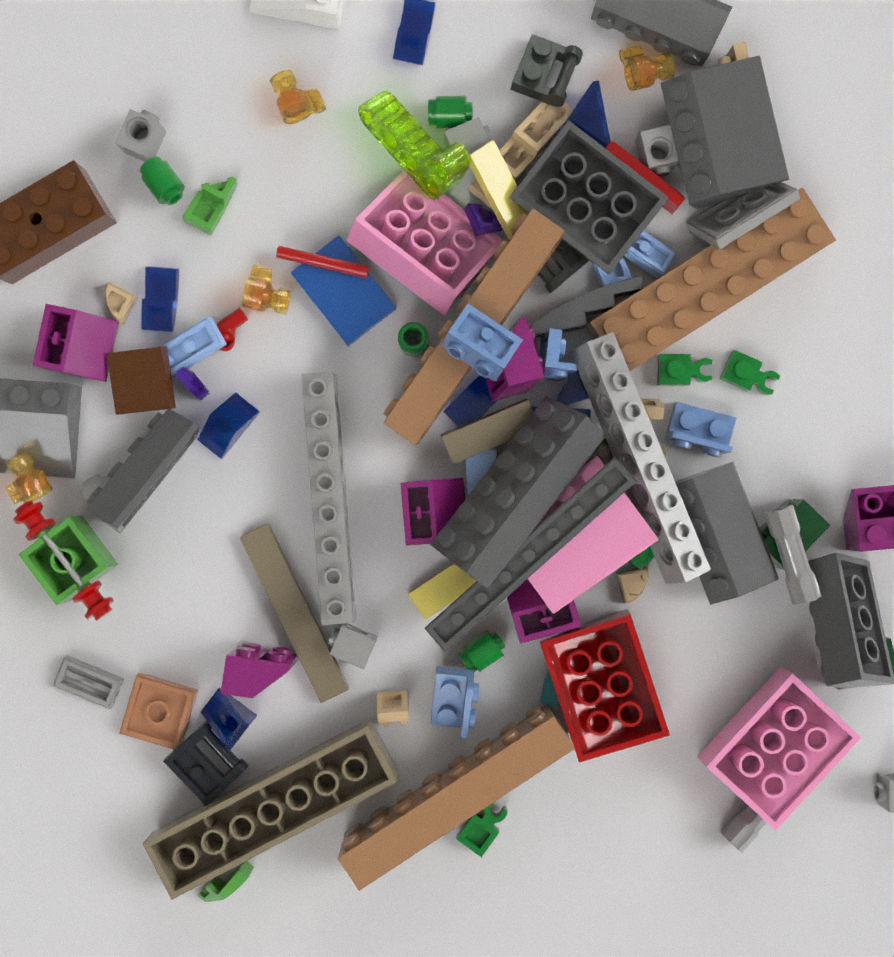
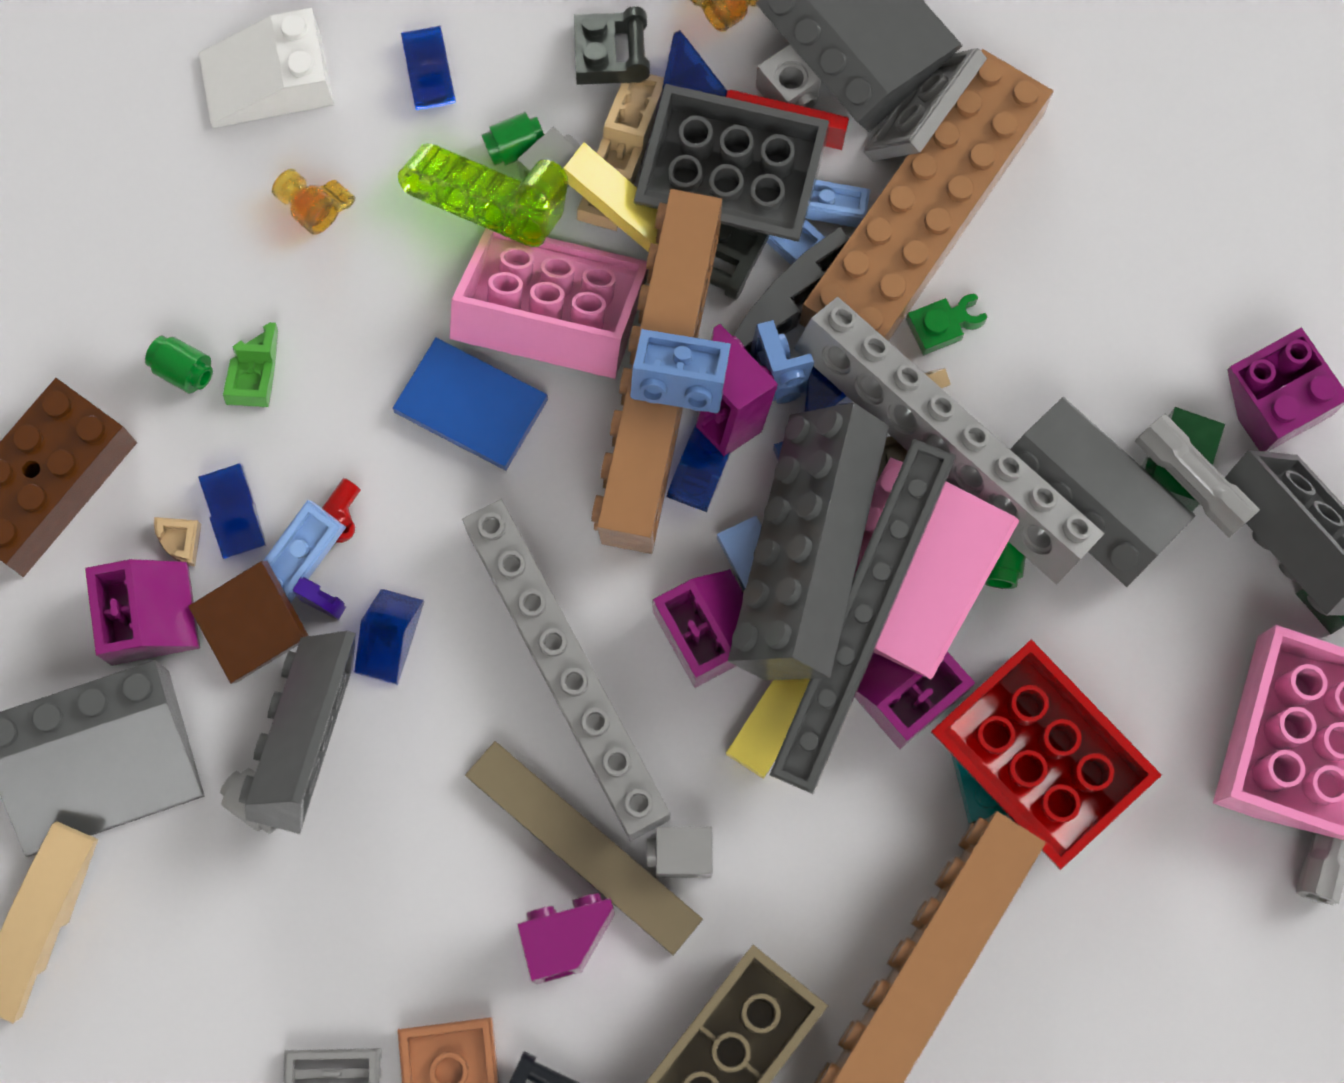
camera: 25 degrees left, 15 degrees down
(30, 482) = (146, 821): clear yellow piece -> none
(66, 559) = (237, 901): bright green brick -> none
(133, 124) = (133, 336): light grey brick -> none
(227, 718) = (550, 1031): clear blue slope -> none
(260, 295) = (365, 450): clear yellow piece -> none
(322, 262) = (429, 376): red bar -> none
(392, 707) = (775, 914): tan tile -> none
(410, 330) = (590, 410): green brick -> none
(453, 698) = (852, 863): medium blue bracket -> none
(480, 830) = (972, 1038): green plate -> none
(482, 220) = (610, 248): dark purple tile -> none
(482, 651) = (860, 784): green brick -> none
(486, 431) = (733, 496): dark tan tile -> none
(632, 583) = (1014, 612): tan tile -> none
(701, 429) = (1004, 383): medium blue bracket -> none
(744, 373) = (1023, 293): green plate -> none

